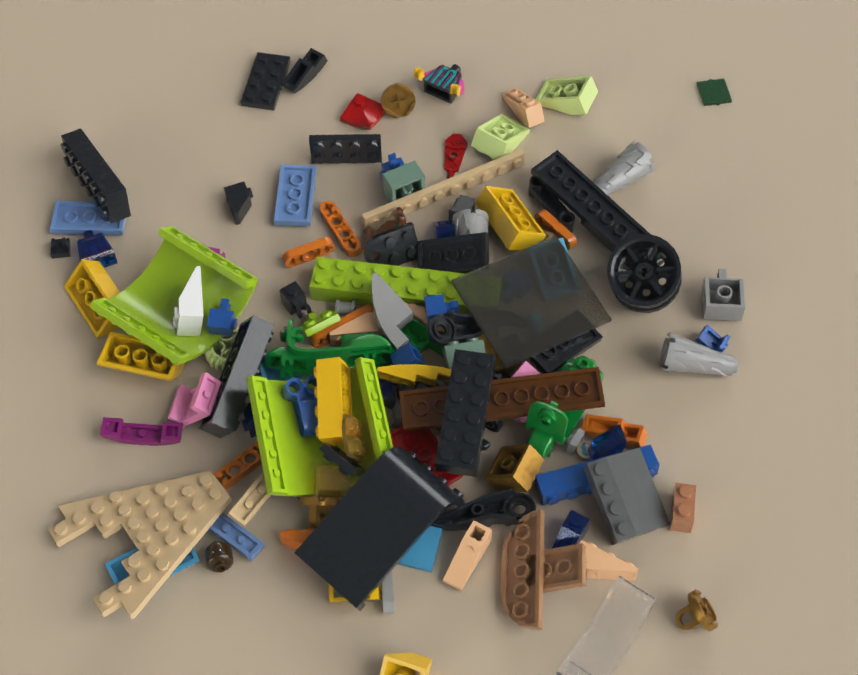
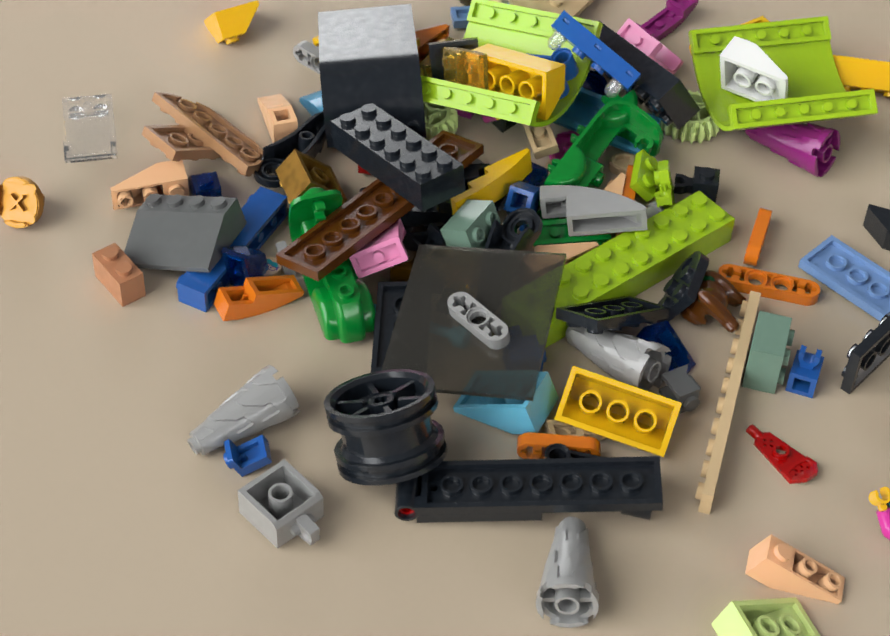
camera: 130 degrees right, 10 degrees down
(222, 320) = (716, 96): blue brick -> none
(274, 369) = (588, 45): none -> blue piece
(326, 300) = (663, 179): none -> lime hinge
(436, 305) = (555, 240): blue brick -> none
(499, 136) = (763, 505): yellowish green slope -> none
(529, 296) = (481, 331): none -> light grey beam

